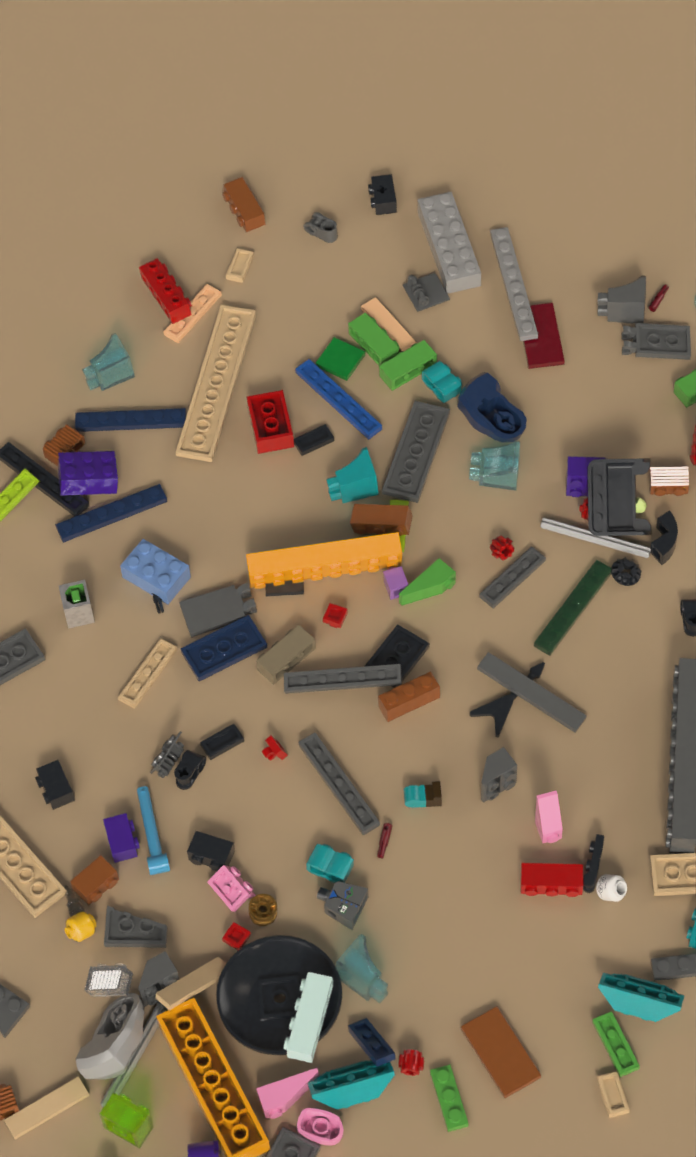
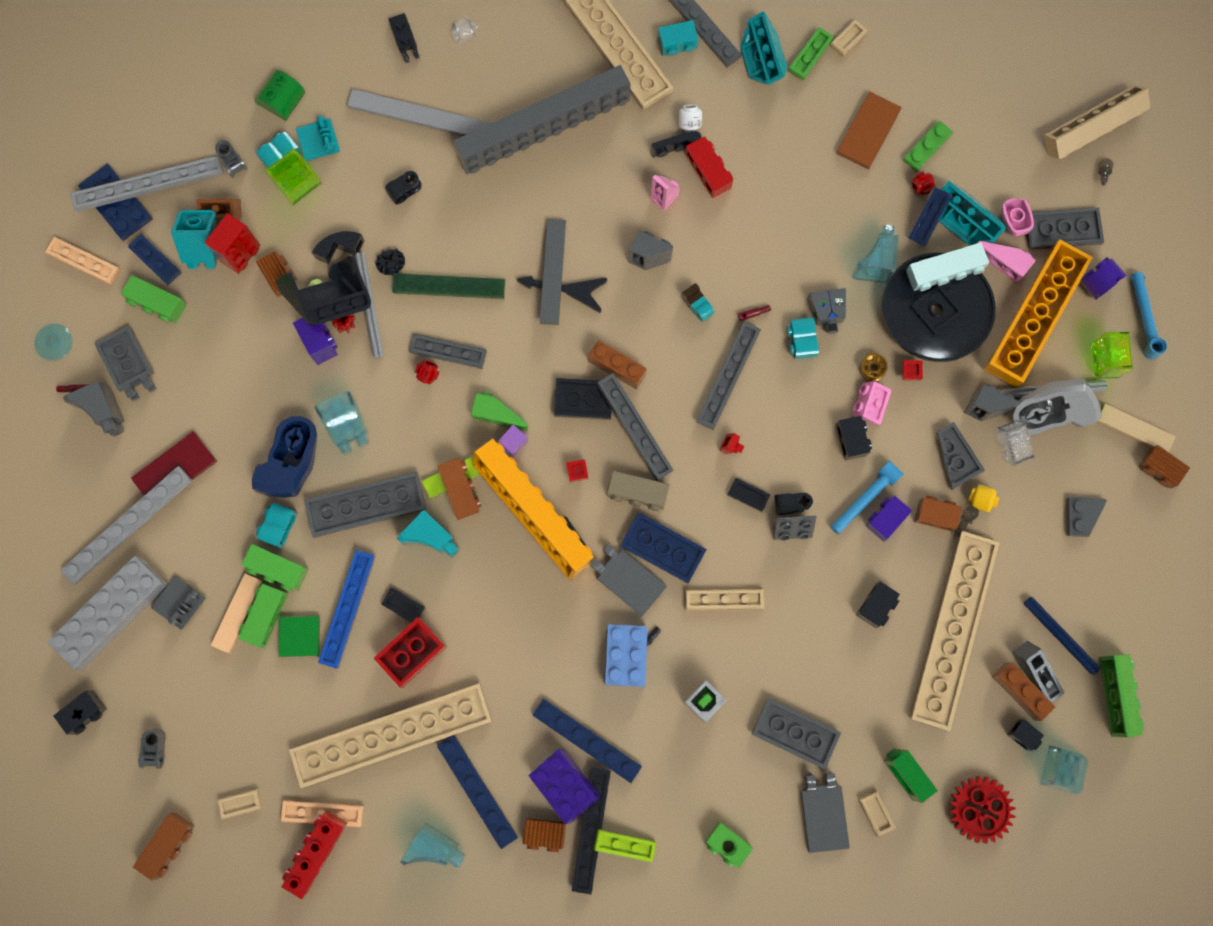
camera: 125 degrees left, 20 degrees up
(191, 984) = (974, 375): tan tile -> none

